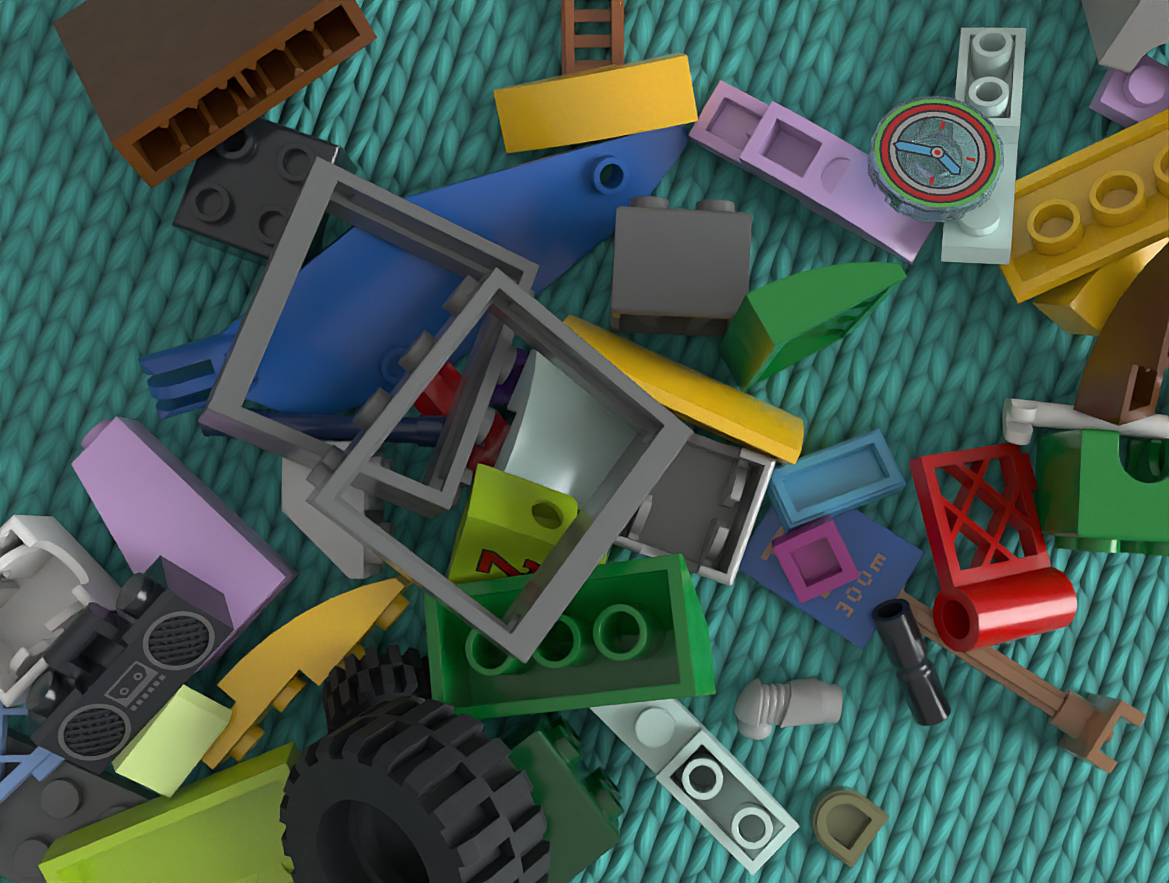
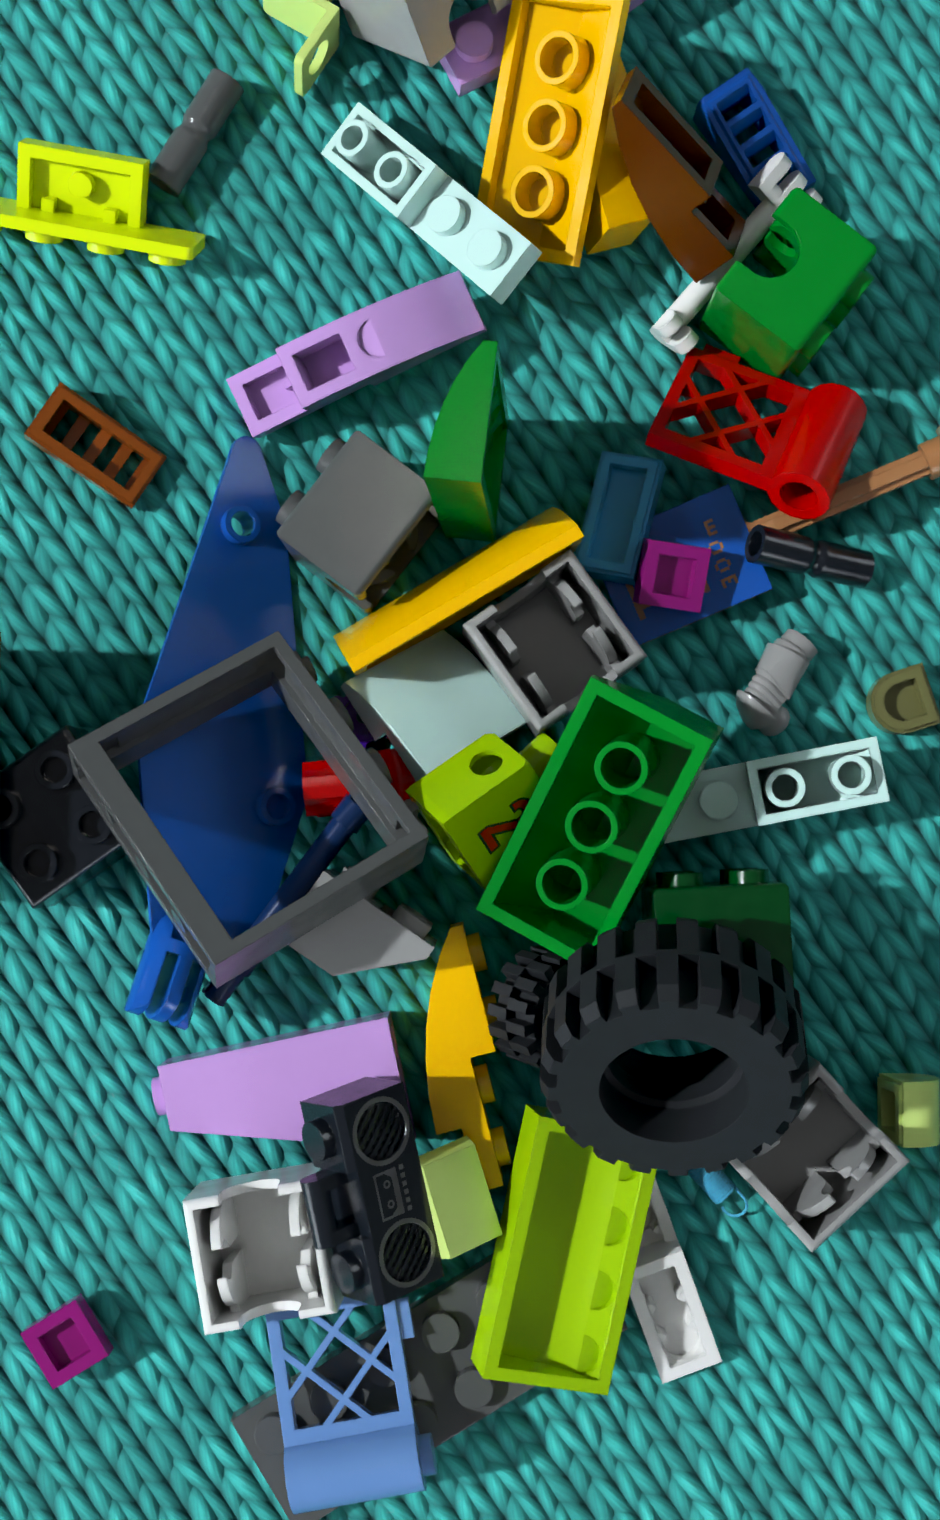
camera: 55 degrees left, 0 degrees up
(595, 527) = (520, 719): dark grey window -> none
(597, 104) = (174, 493): yellow slope -> none
(935, 158) = (415, 251): tile -> none

